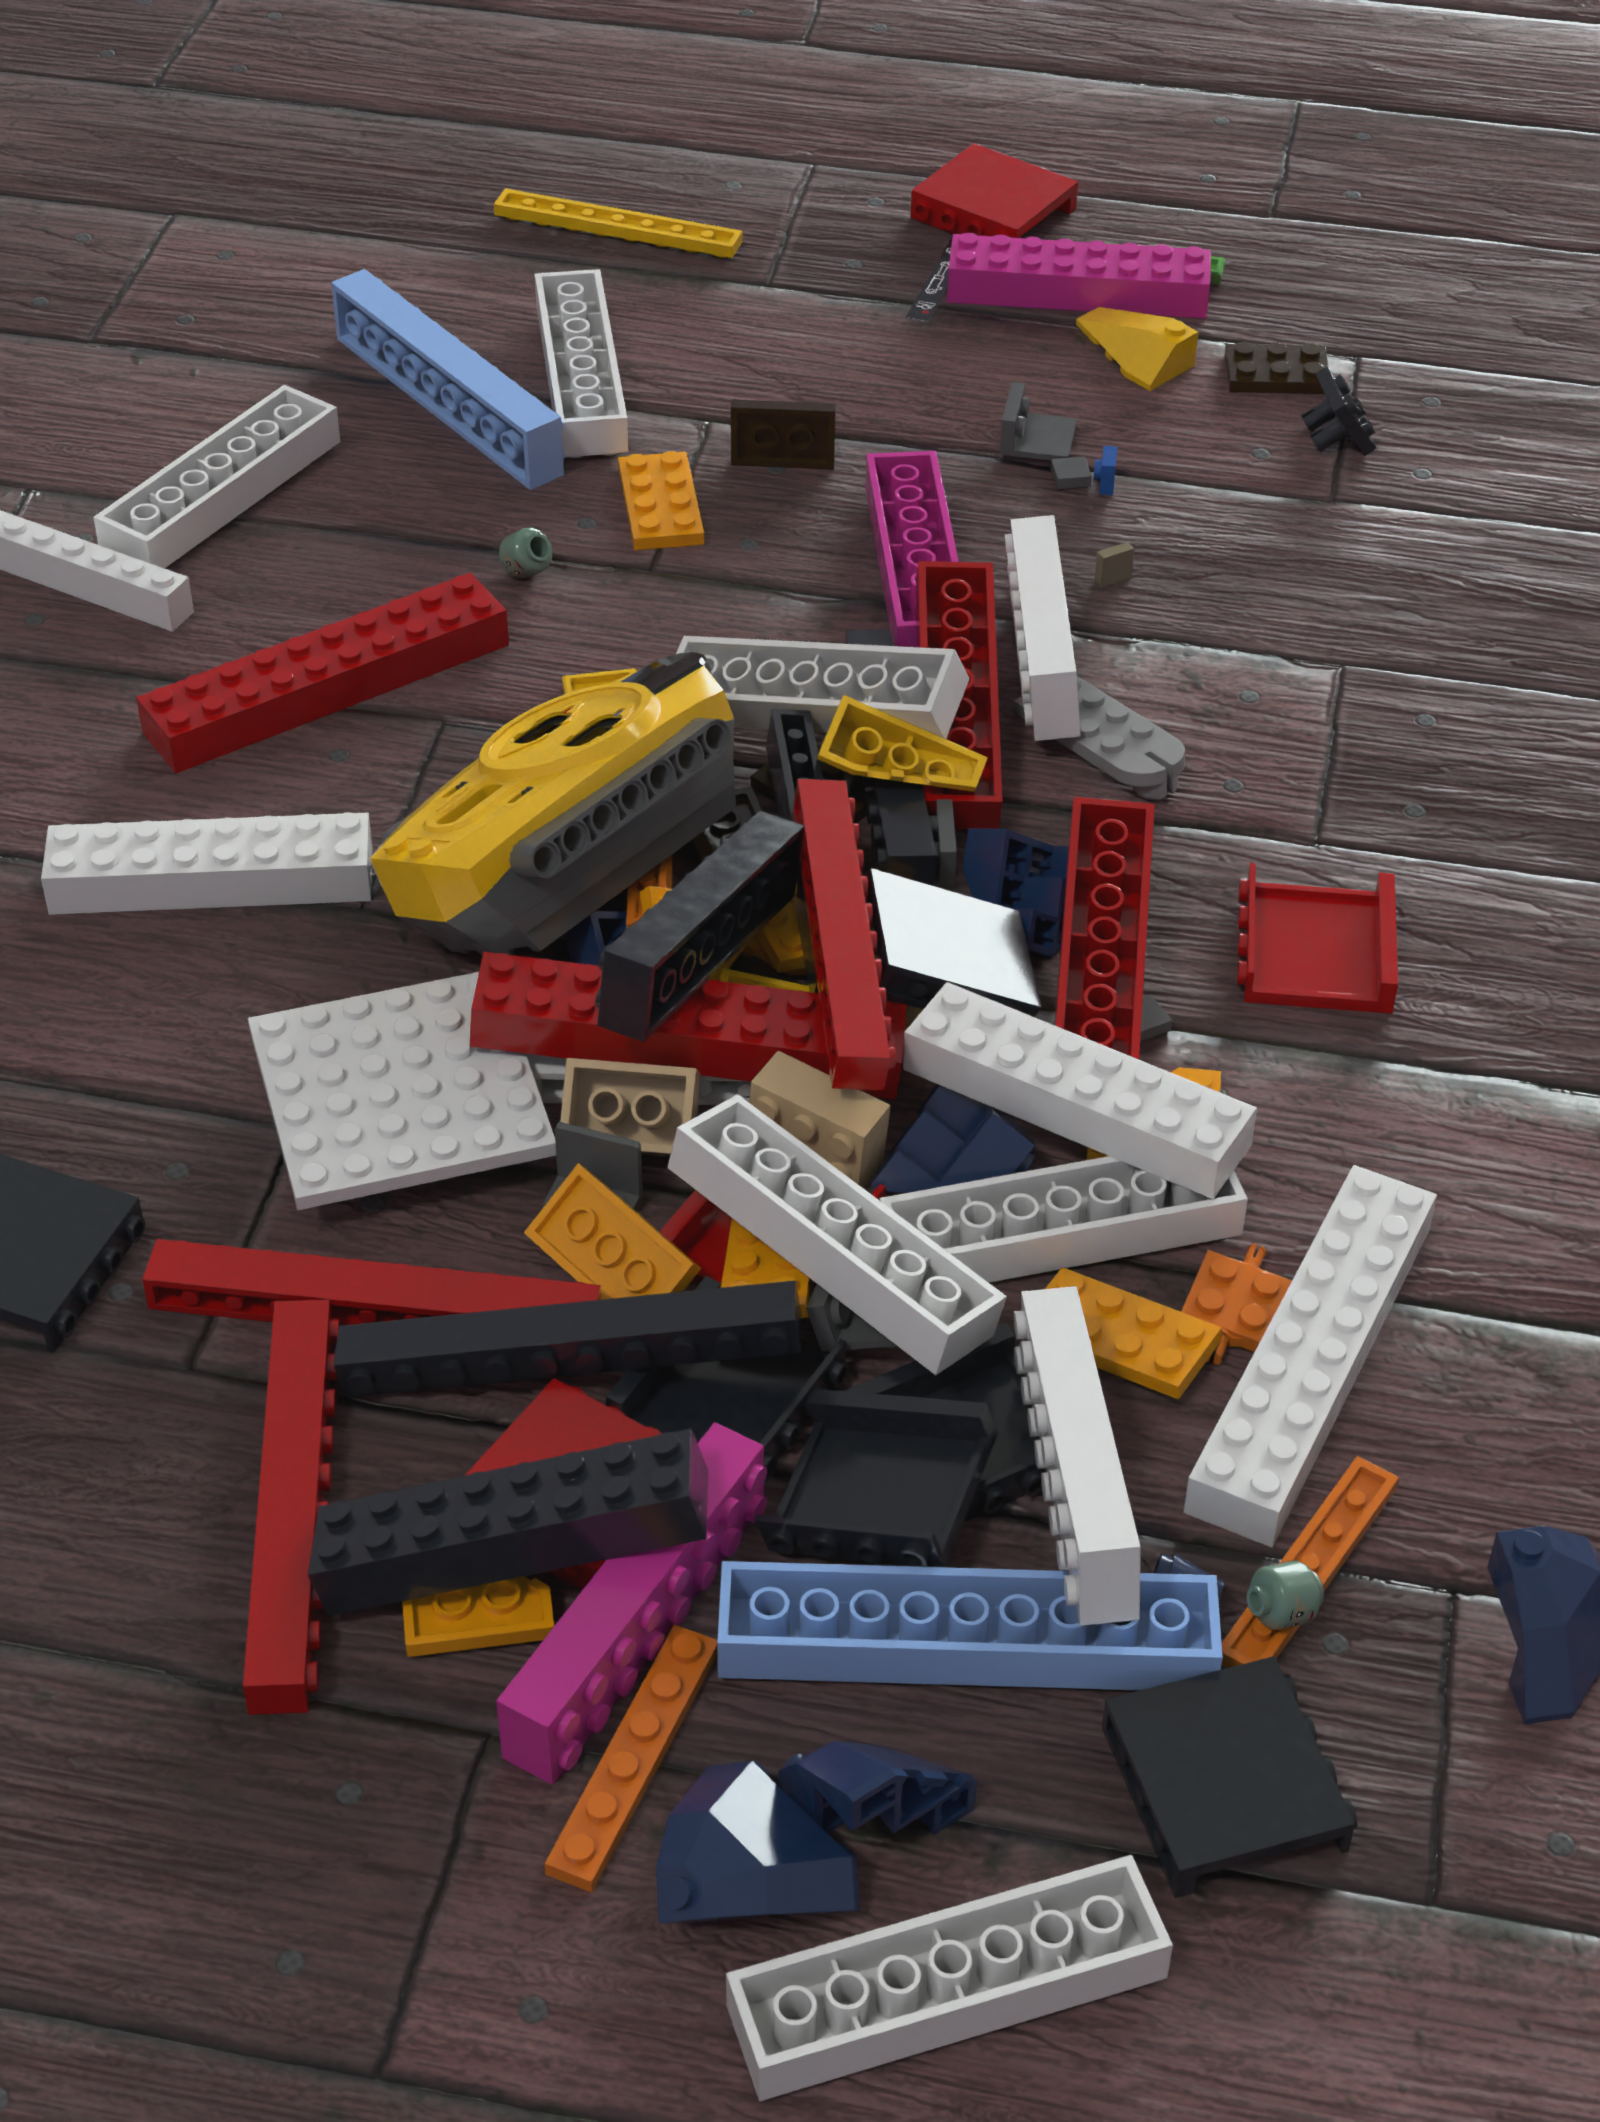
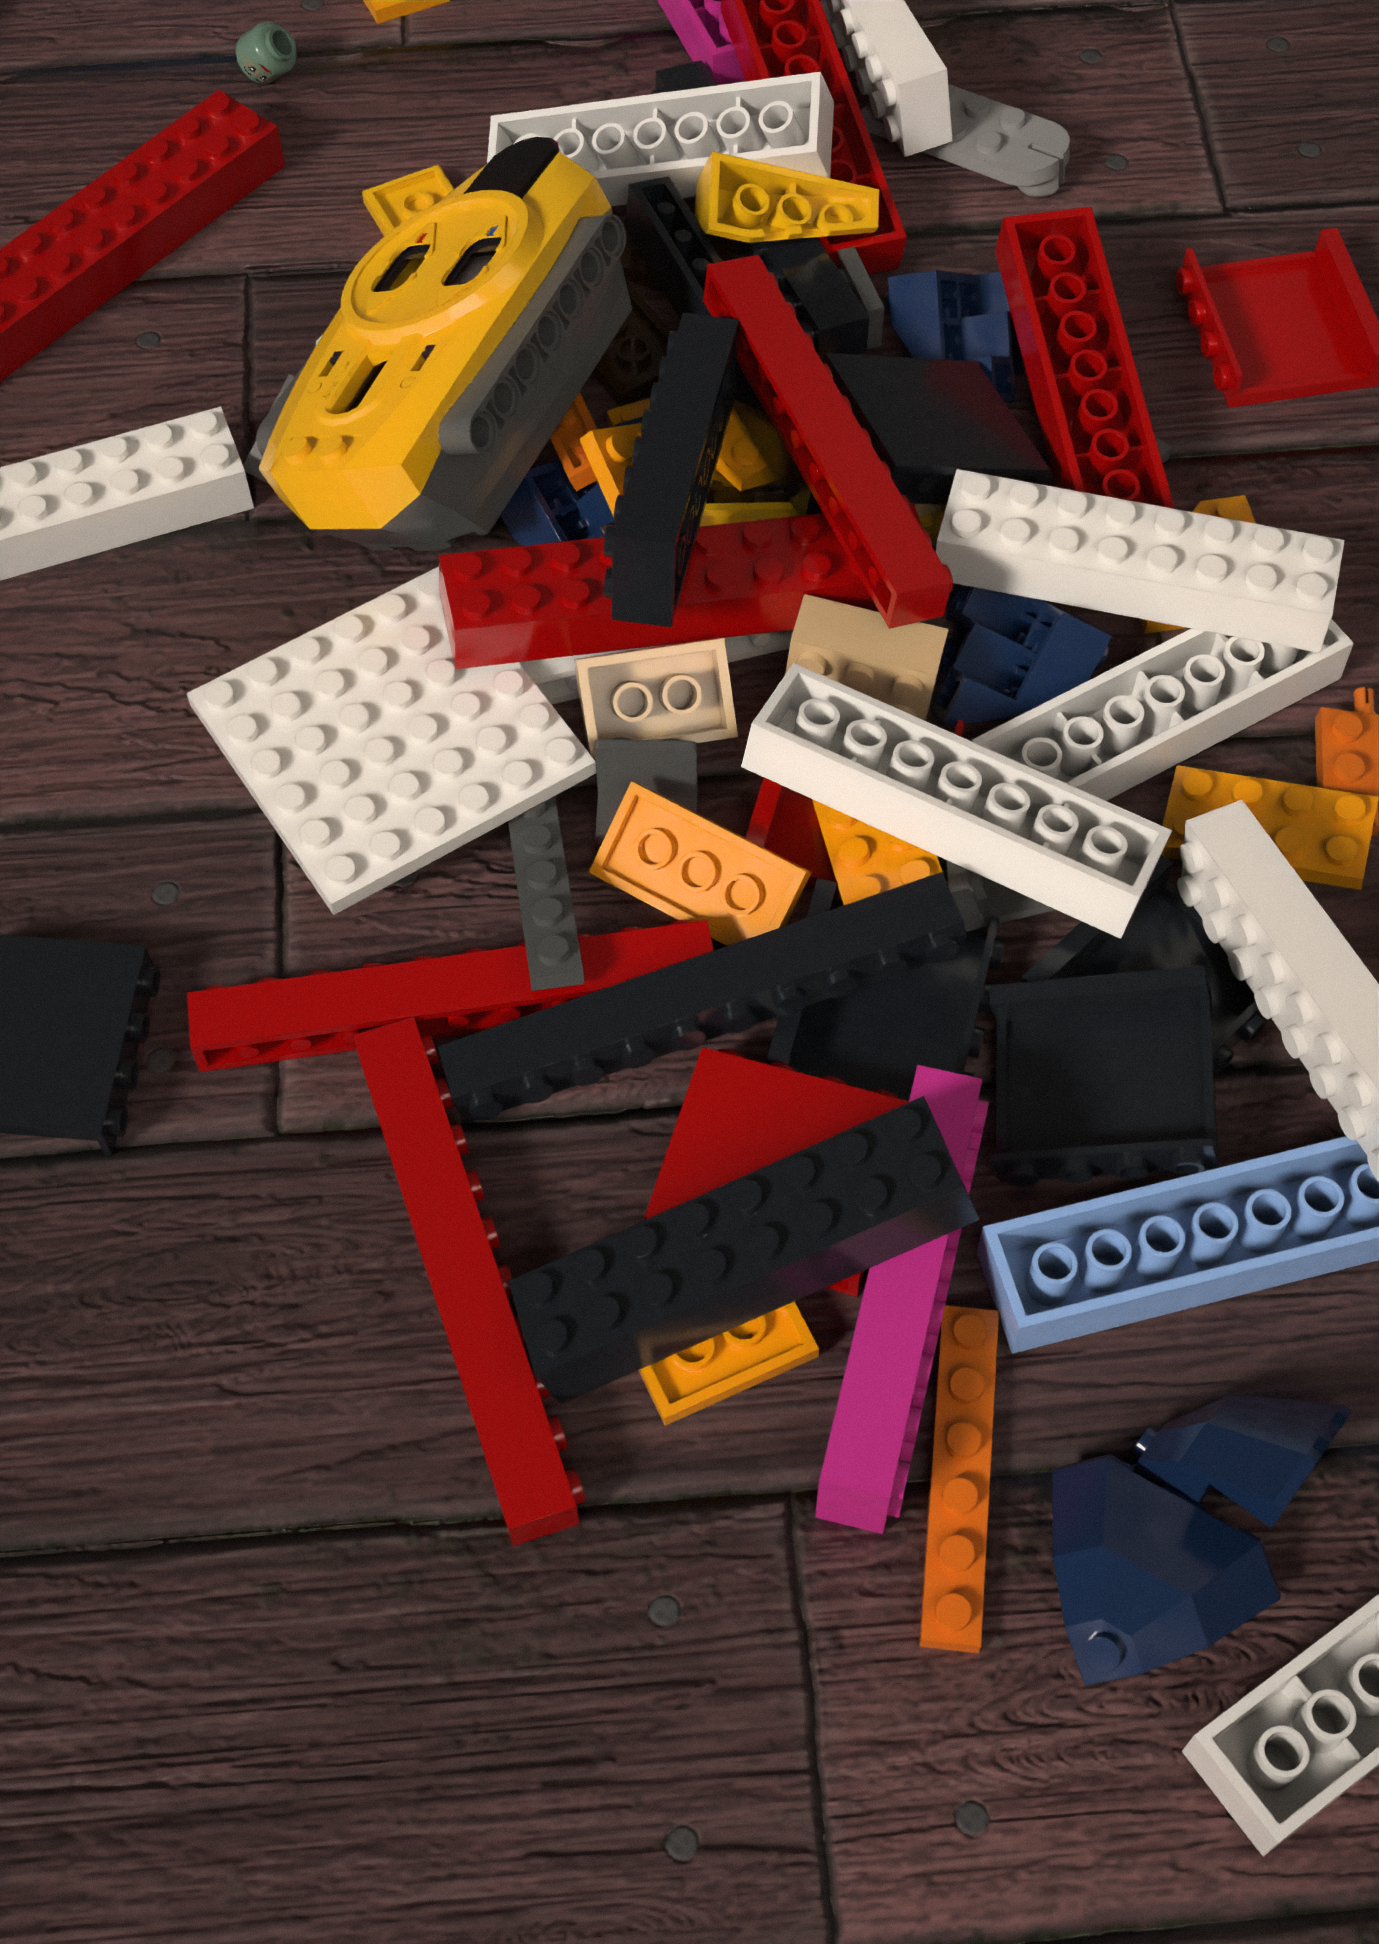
camera: 15 degrees left, 15 degrees up
(475, 1235) = (545, 898): none -> dark grey plate

